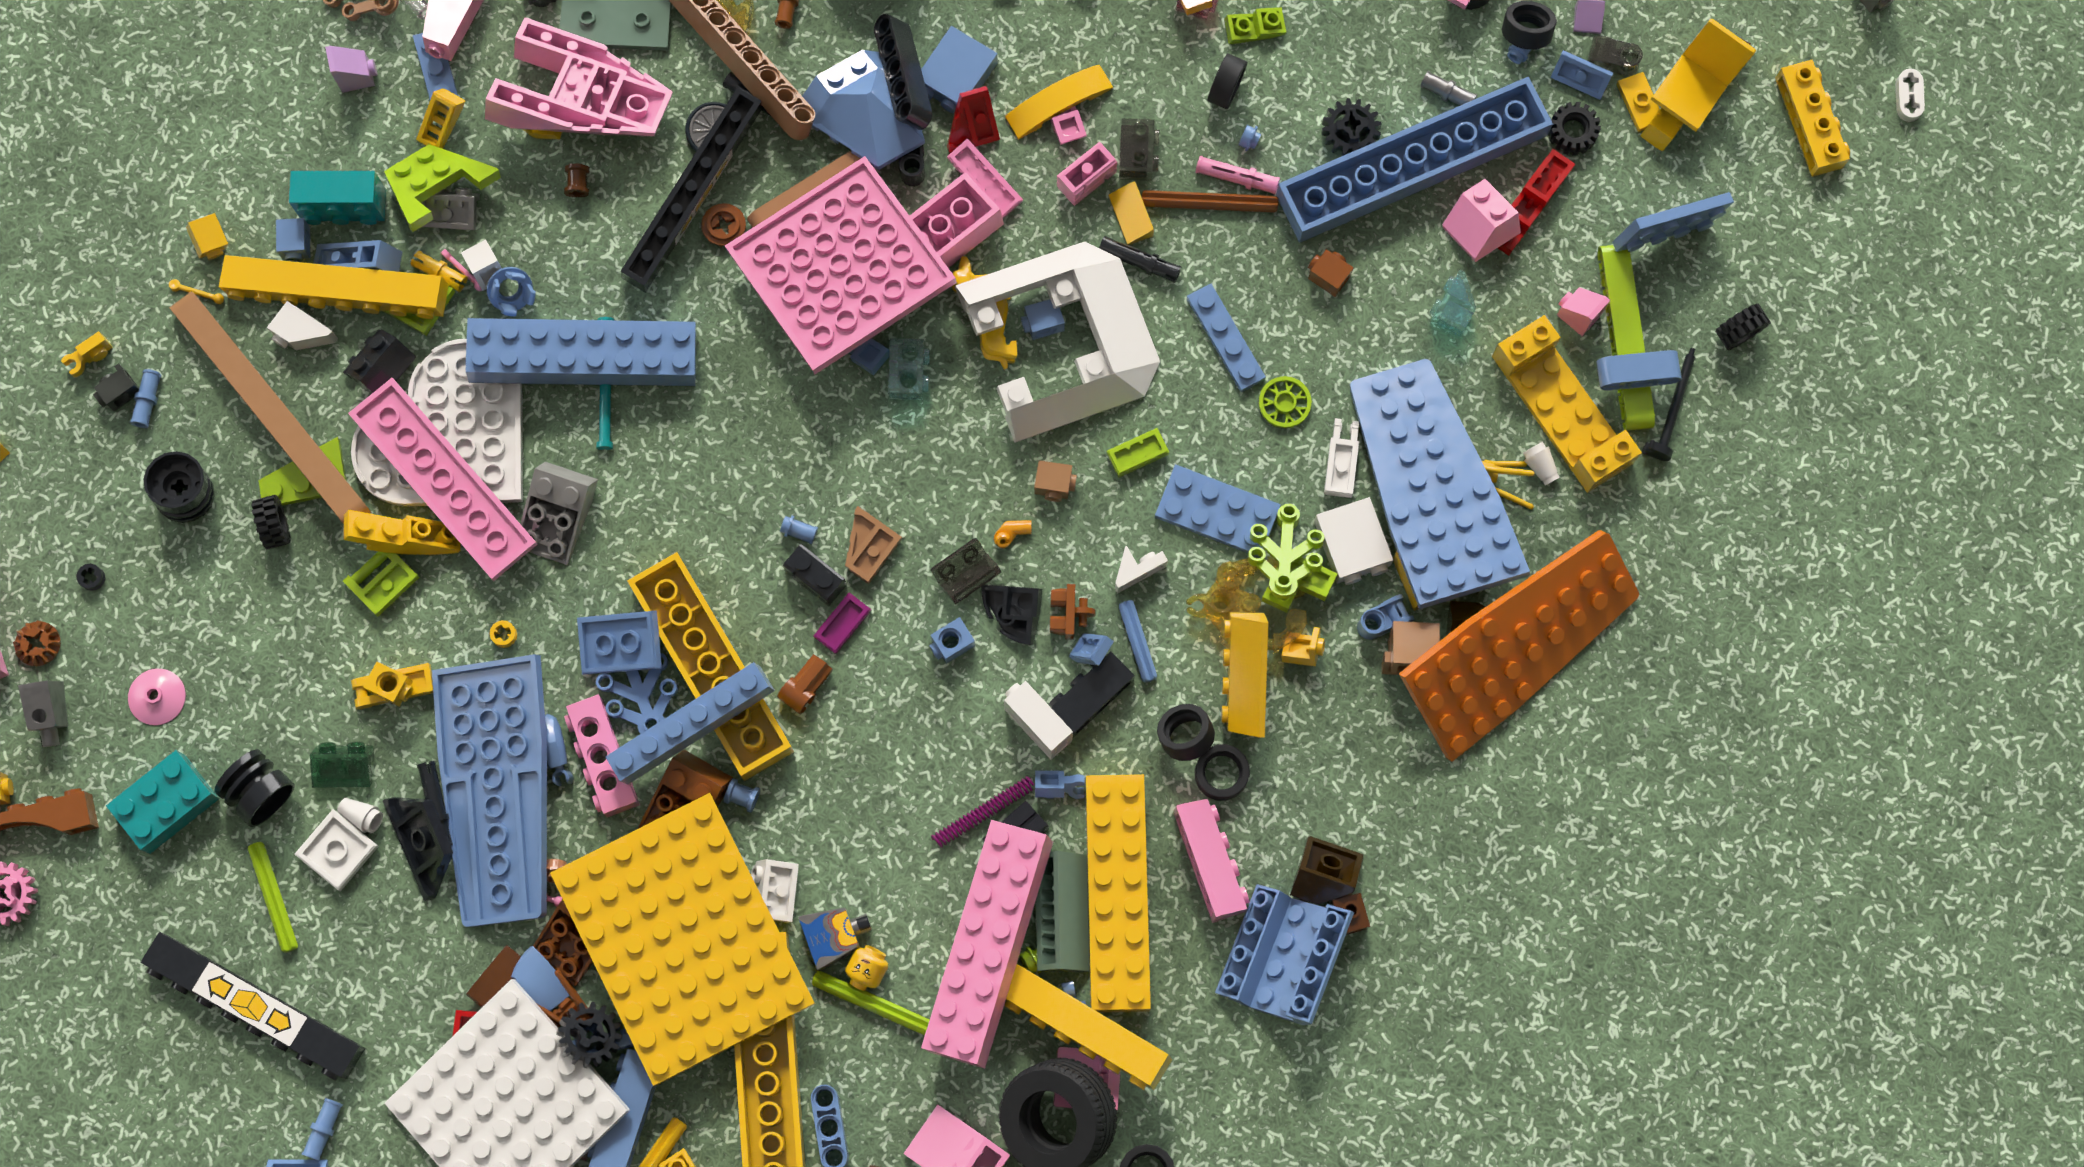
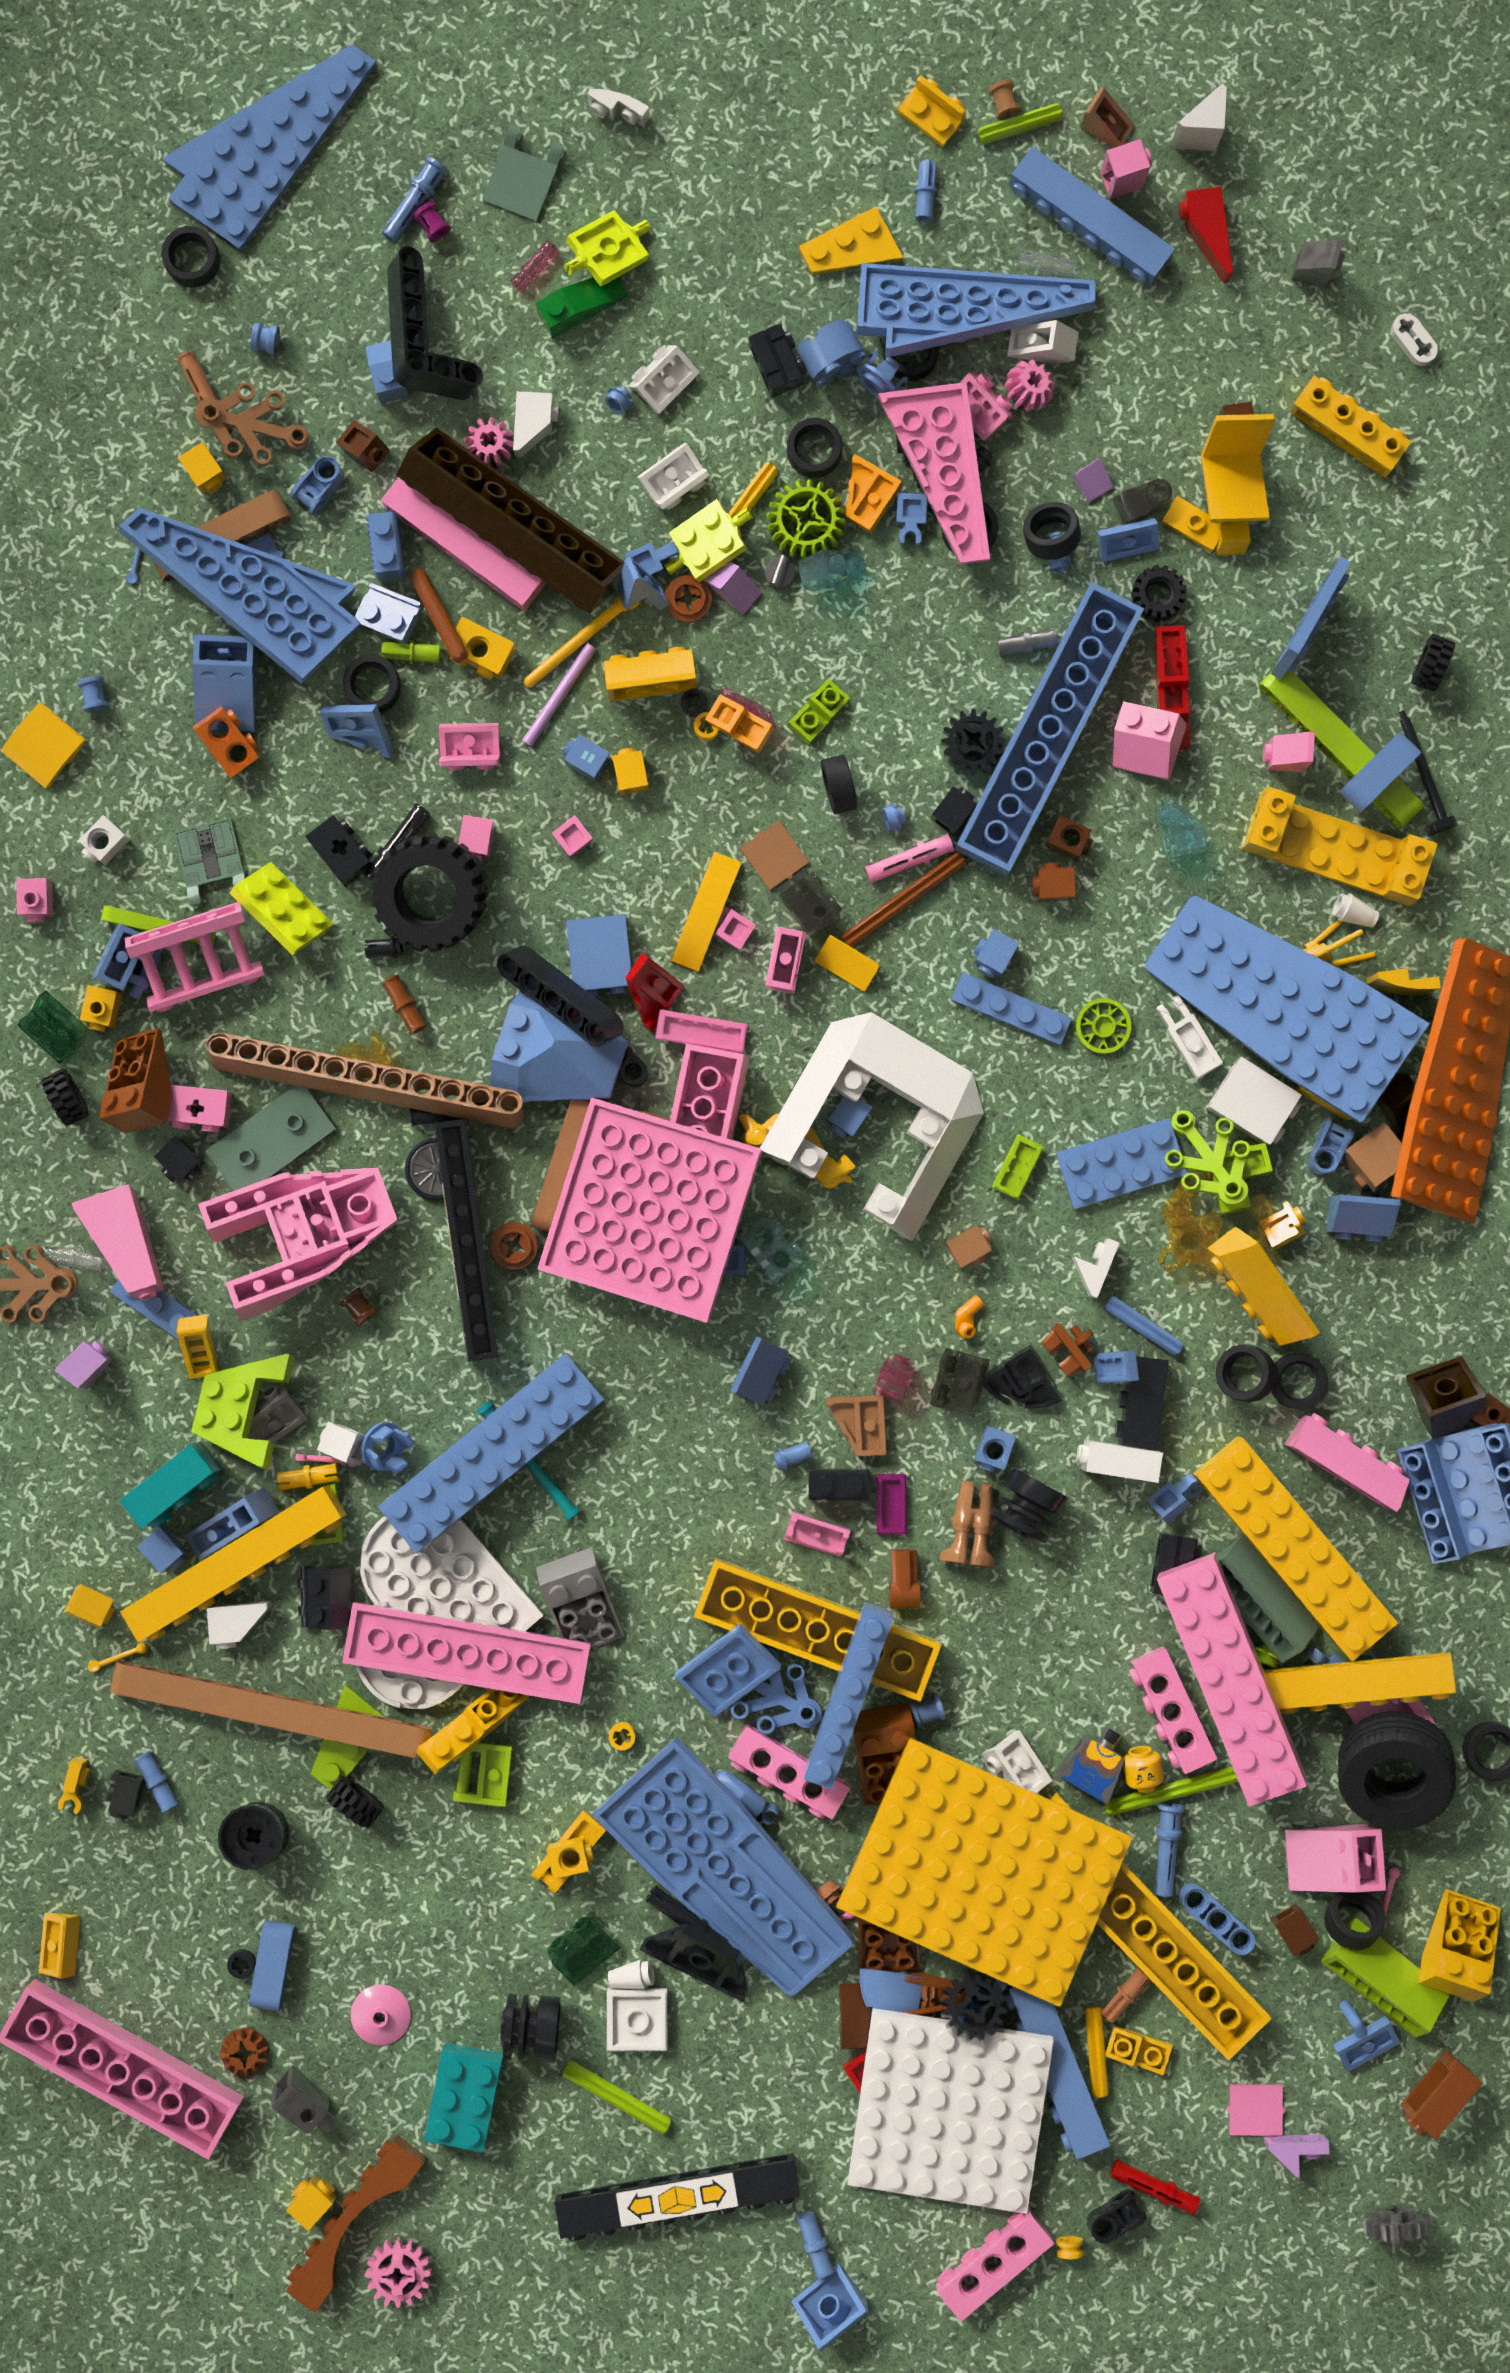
camera: 40 degrees left, 10 degrees up
(110, 594) = (270, 1966): none -> medium blue beam
(712, 1132) = (1127, 1994): none -> nougat axle
(769, 600) = (817, 1534): none -> bright pink hinge
(825, 446) = (760, 1371): none -> medium blue slope
(846, 1034) = (1168, 1835): none -> medium blue pin
(897, 686) = (968, 1517): none -> medium nougat piece
(920, 530) = (894, 1376): none -> clear pink brick
(942, 699) = (1029, 1506): none -> black wheel
(944, 899) = (1198, 1750): none -> bright pink brick
(971, 816) = (1134, 1569): magenta piece -> none
(1141, 98) = (774, 855): none -> medium nougat piece
(1150, 263) = (885, 998): black pin -> none
(1246, 287) = (994, 953): none -> medium blue brick
(1296, 161) = (954, 810): none -> black brick
(1367, 237) = (1056, 842): none -> reddish brown brick
(1368, 685) = (1362, 1216): none -> medium blue slope
(1528, 531) = (1398, 983): none -> yellow slope

